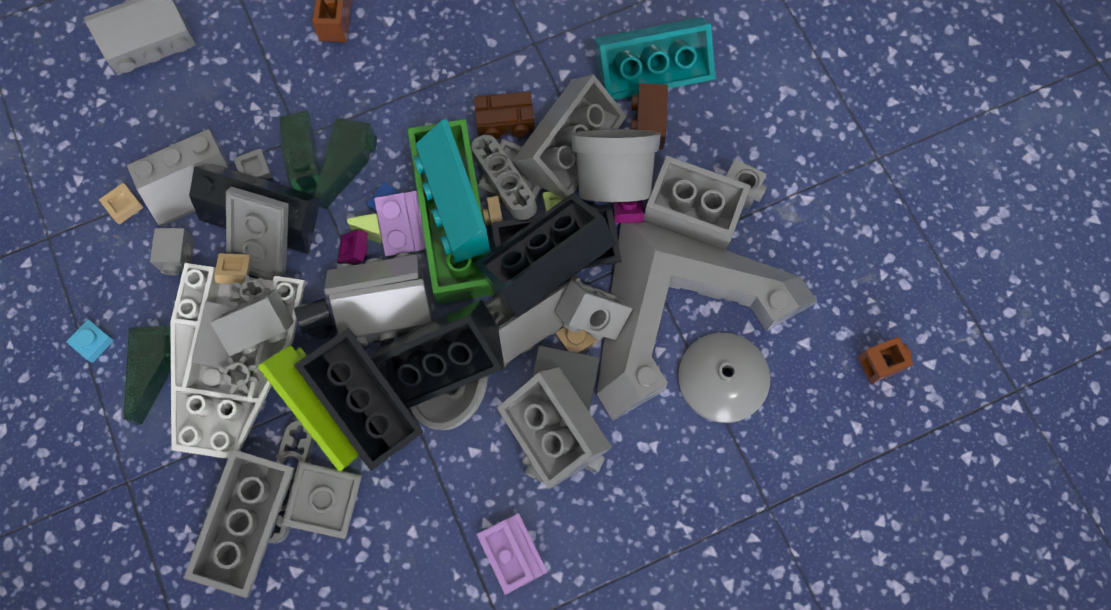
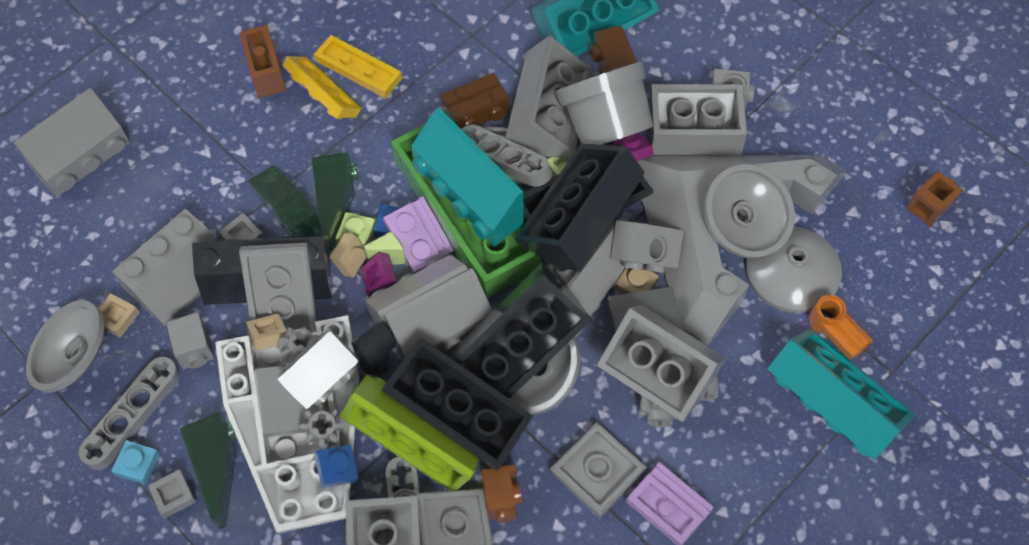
camera: 20 degrees left, 10 degrees down
(67, 219) = (65, 346): none -> light grey dish
(103, 299) = (125, 409): none -> light grey beam
(106, 380) = (171, 493): none -> light grey plate
(238, 413) = (336, 466): none -> blue plate
(334, 220) = (348, 255): none -> tan plate
(351, 198) = (357, 225): none -> yellowish green plate
(372, 488) = (501, 493): none -> dark orange brick
(376, 50) = (321, 87): none -> yellow plate
(417, 41) = (358, 66): none -> yellow plate
(466, 497) = (598, 470): none -> light grey tile
(710, 512) = (840, 393): none -> teal slope
(718, 315) = (760, 200): none -> light grey dish
(737, 454) = (841, 328): none -> orange piece

